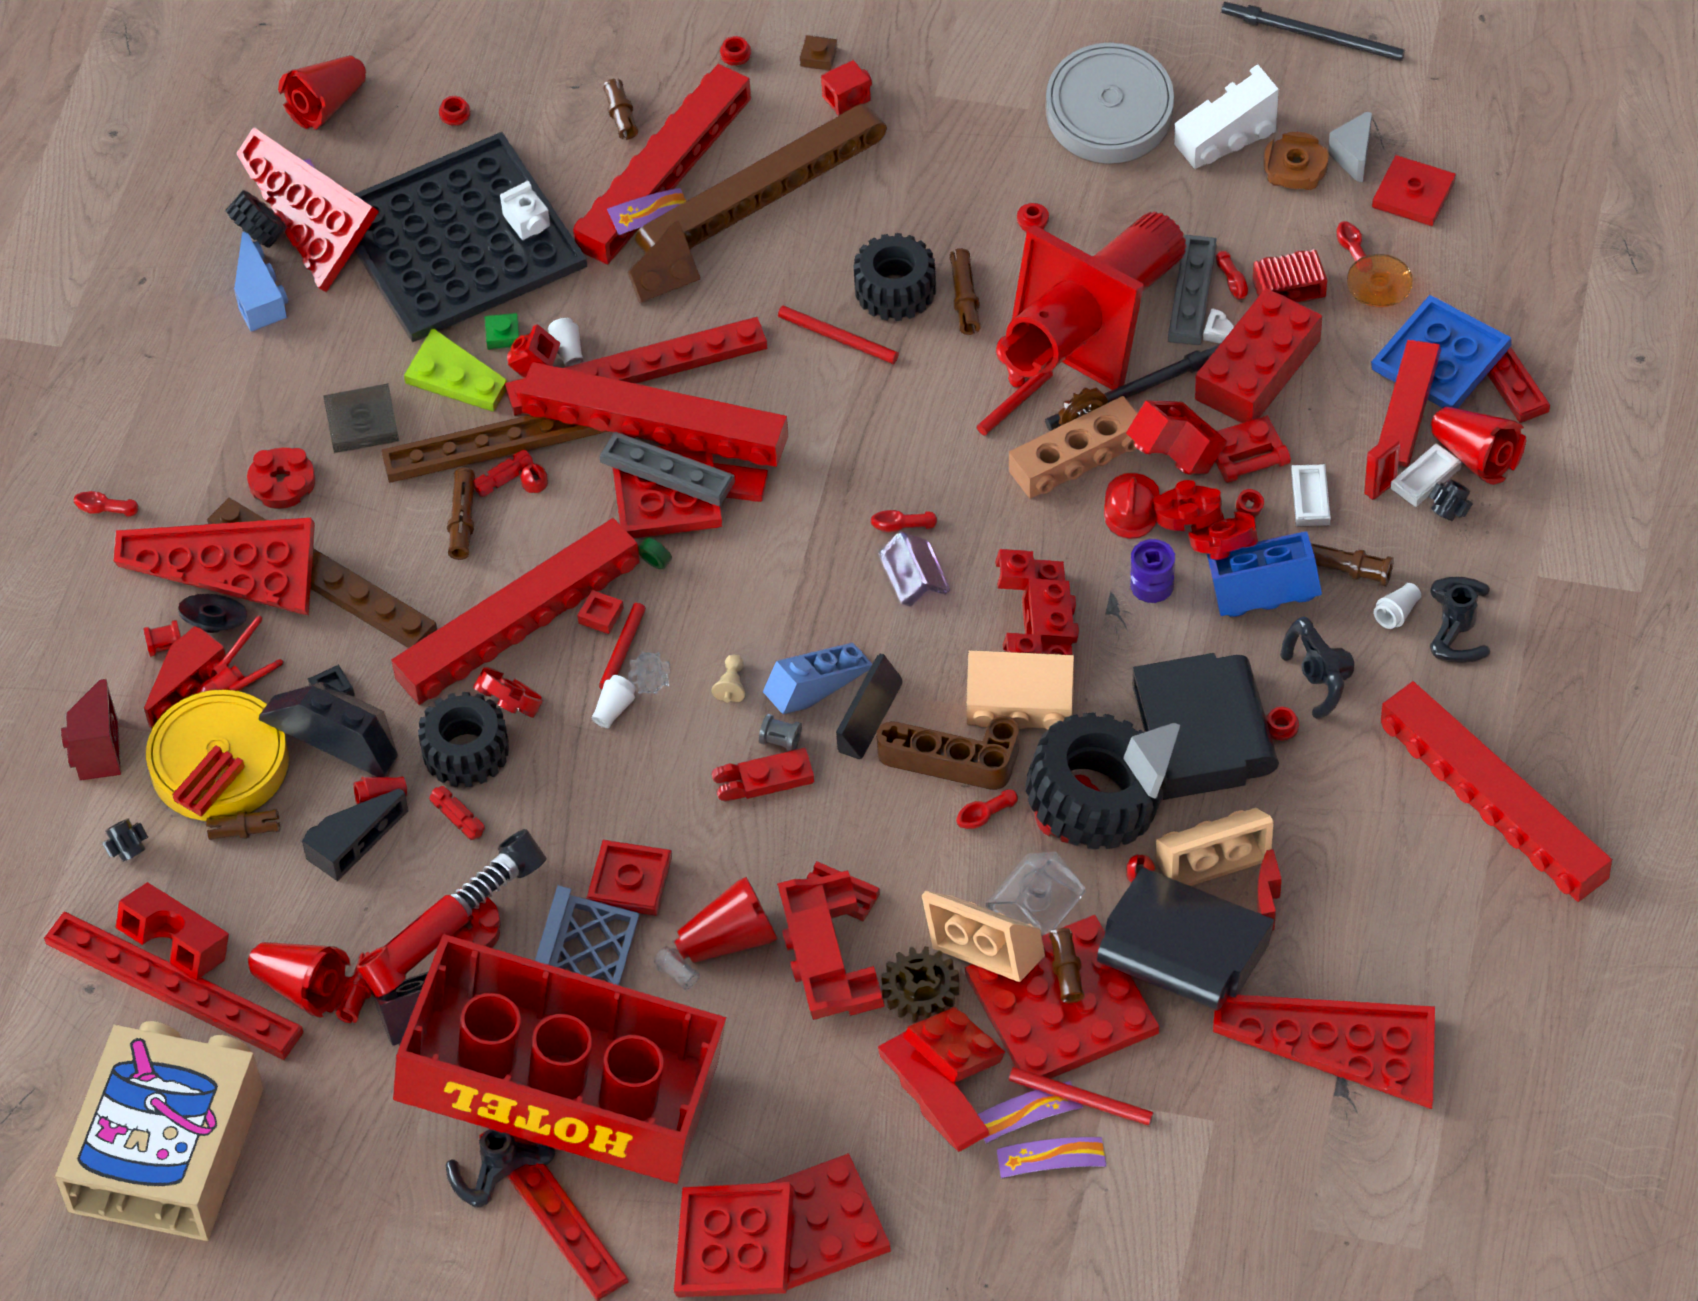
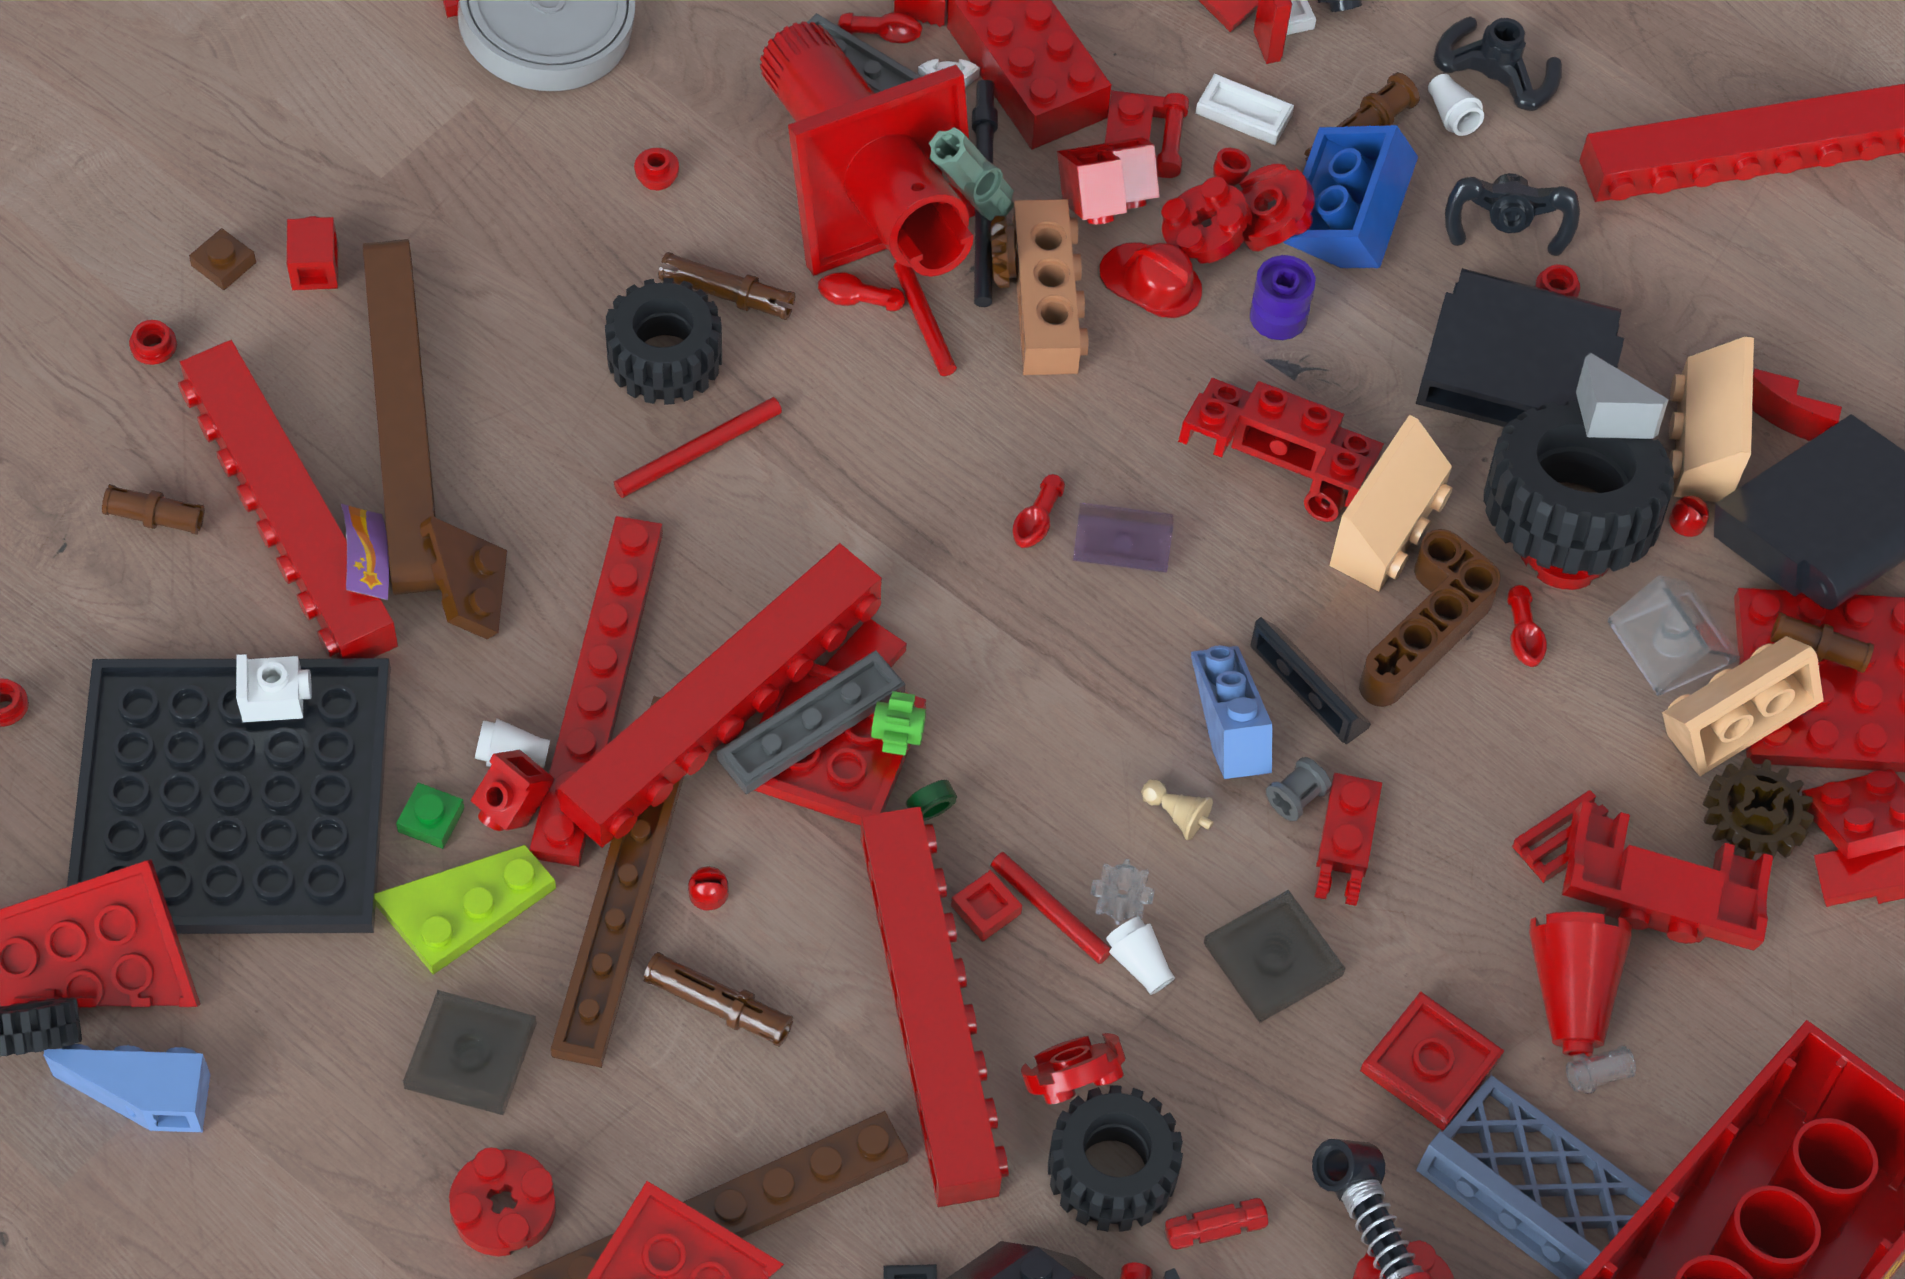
camera: 70 degrees left, 5 degrees up
(502, 473) = (677, 918): red axle -> none
(654, 768) = (1274, 956): none -> clear smoke plate
(684, 504) = (898, 723): none -> bright green gear
(1105, 353) = (971, 173): none -> sand green piece

